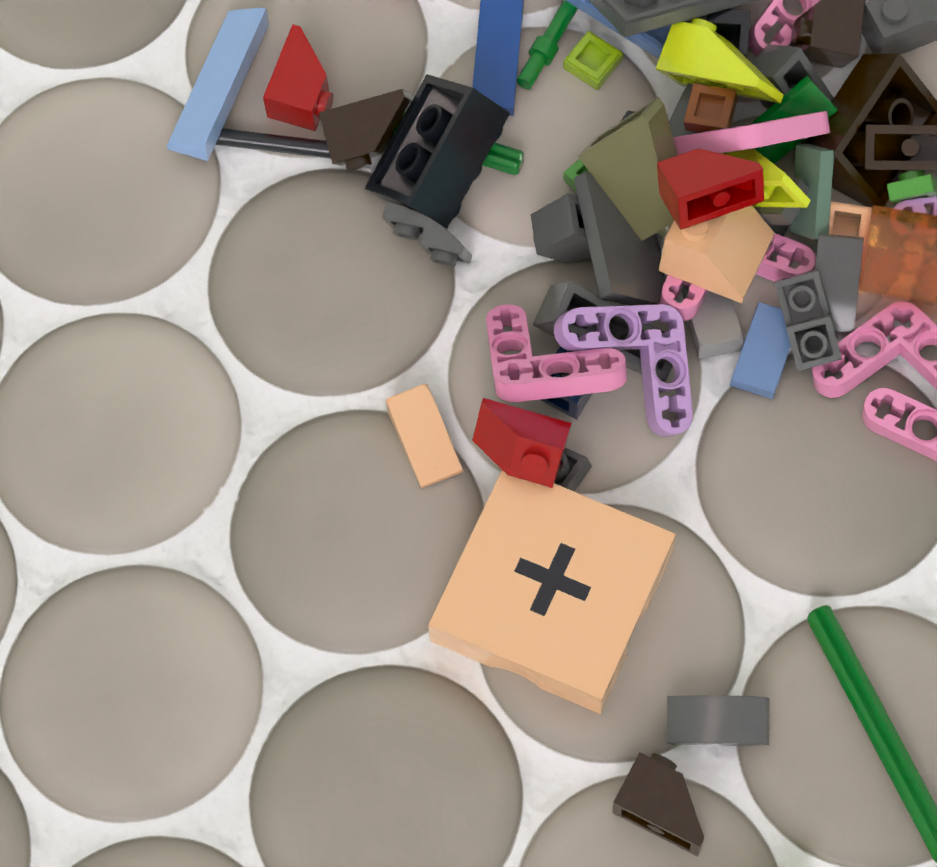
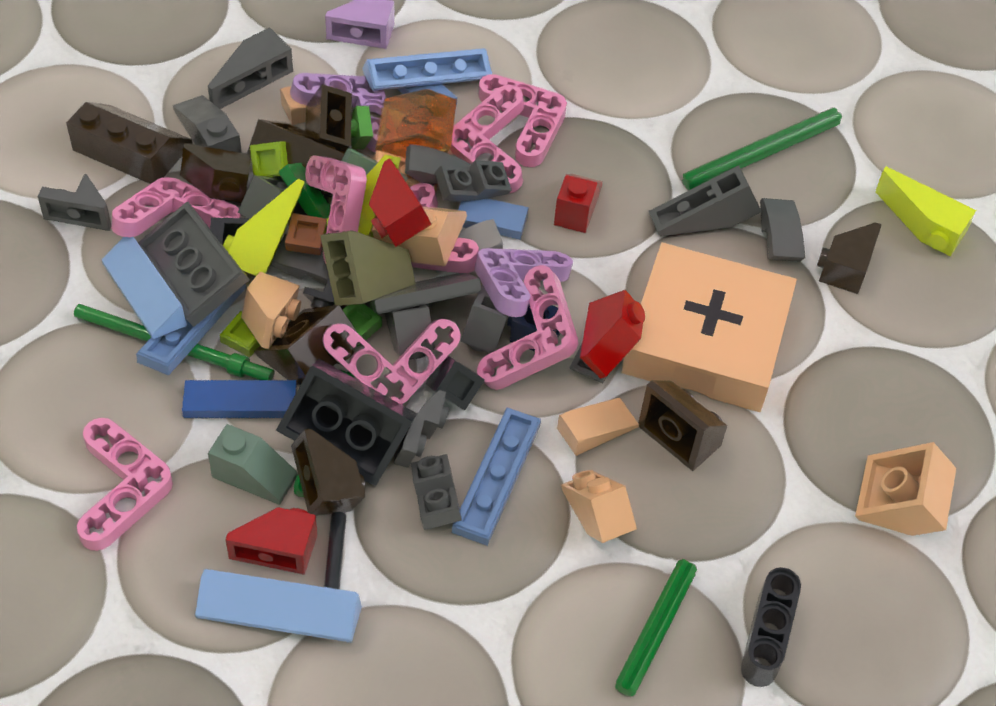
camera: 105 degrees left, 15 degrees down
(109, 564) = (766, 642): none -> black beam
(148, 463) = (655, 628): none -> green axle
(280, 783) = (907, 490): none -> light nougat slope
(302, 416) = (600, 505): none -> light nougat slope
(355, 248) = (435, 491): none -> dark grey slope
(367, 318) = (496, 476): none -> medium blue tile
(398, 53) = (250, 465): none -> sand green slope
(402, 522) = (680, 423): none -> dark brown slope
(494, 277) = (457, 381): none -> black panel
(506, 207) = (400, 369): none -> bright pink beam
(556, 118) = (303, 343): none -> dark brown slope
(610, 74) = (270, 307): none -> light nougat slope
(760, 625) = (709, 206): none -> dark grey slope
(789, 458) = (576, 202): none -> red slope
(846, 75) = (268, 158): none -> lime tile

